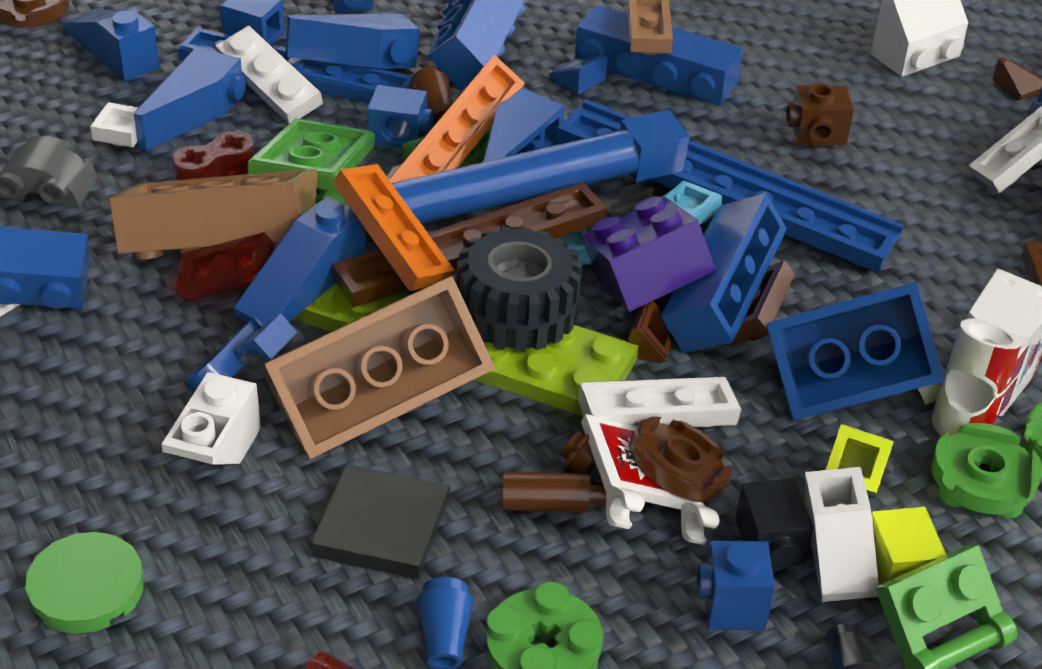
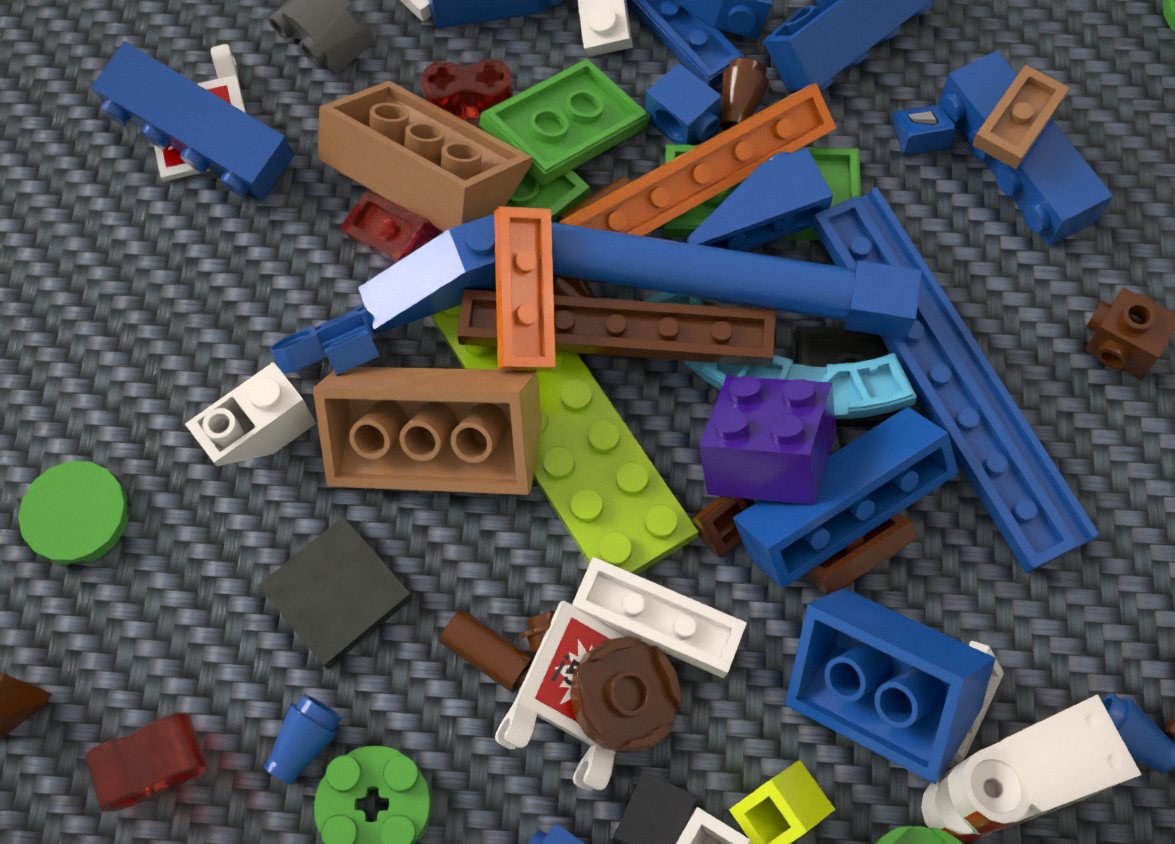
camera: 40 degrees right, 25 degrees up
(520, 287) = (607, 415): black wheel -> none

